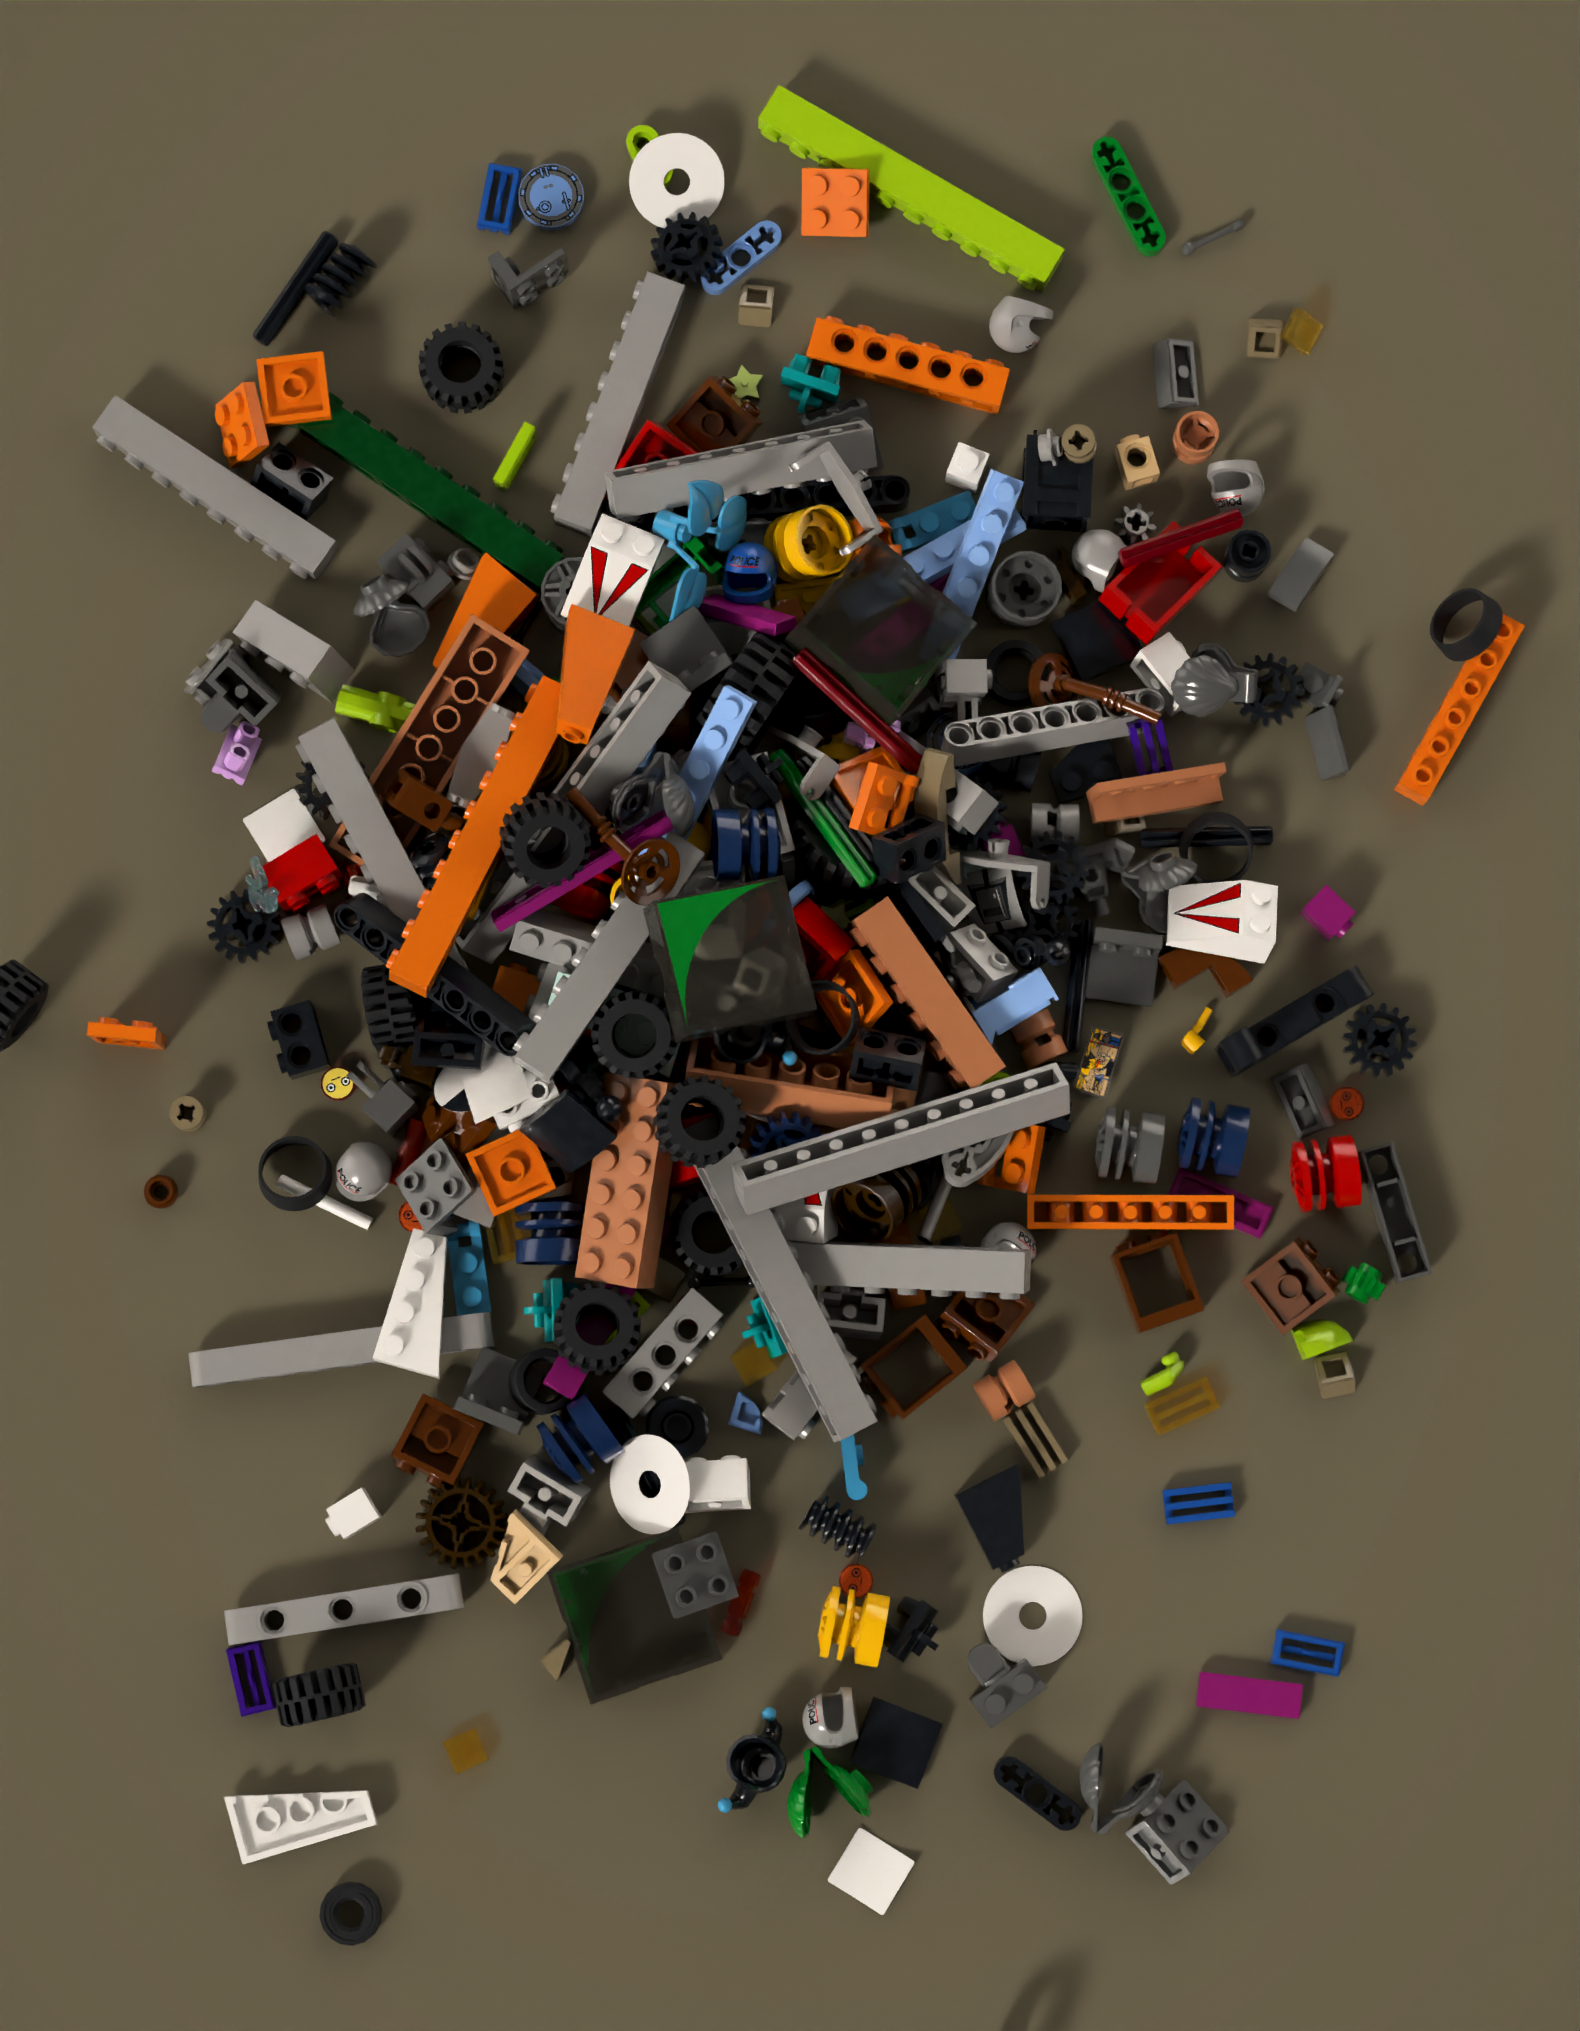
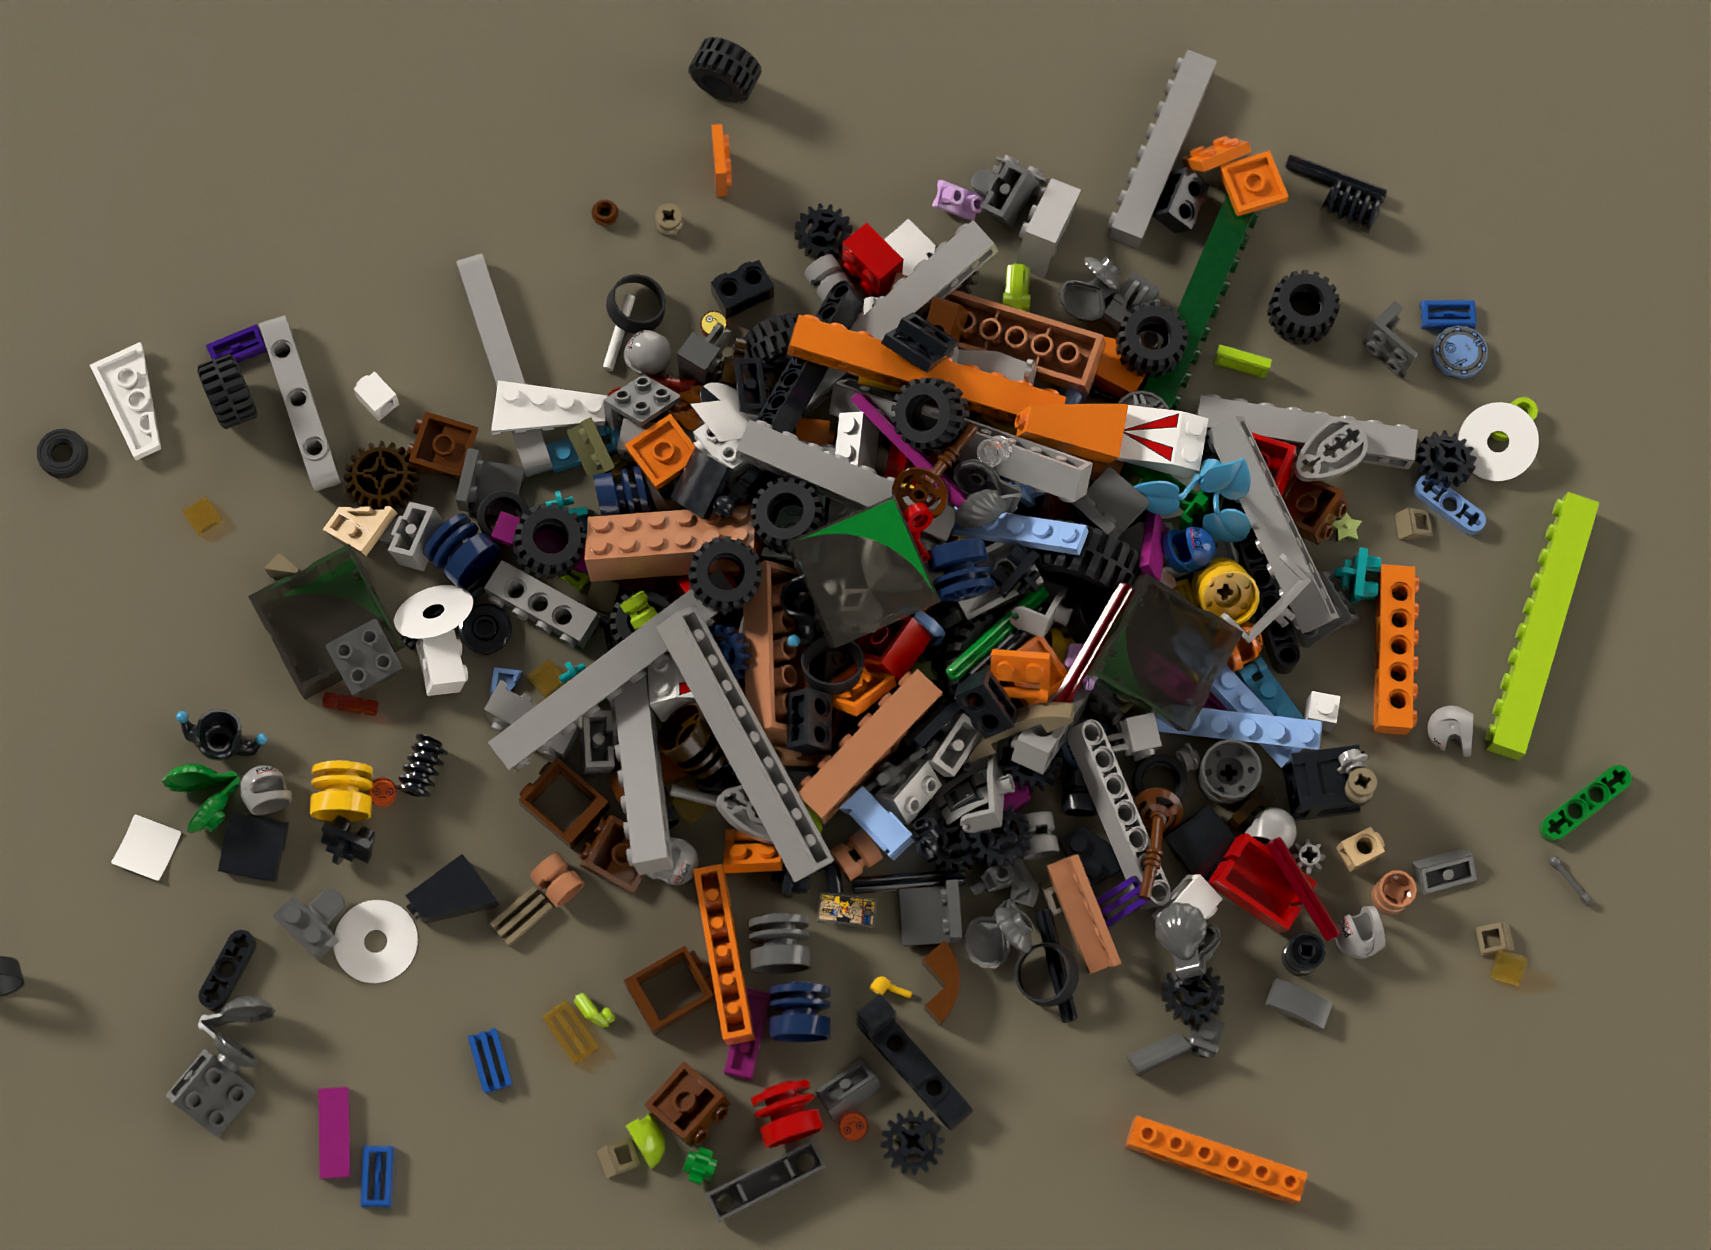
camera: 75 degrees right, 10 degrees down
(259, 898) = (848, 232): clear light blue piece -> none
(448, 833) = (919, 342): none -> black slope
(475, 530) = (1151, 319): none -> black tyre
(481, 1260) = (590, 448): none -> olive bracket
(617, 775) = (988, 450): none -> clear wheel
(671, 367) = (1324, 437): none -> light grey piece
(679, 881) = (918, 519): none -> red plate
(704, 1235) = (634, 605): none -> lime wheel
(835, 202) = (1515, 566): orange plate -> none
(852, 1458) = (478, 768): dark azure plate -> none
(994, 633) = (1188, 758): none -> light grey plate
(1224, 919) = (987, 987): white slope -> none
(1328, 913) = (1012, 1079): magenta brick -> none
(1479, 638) = (1283, 1162): black tyre -> none

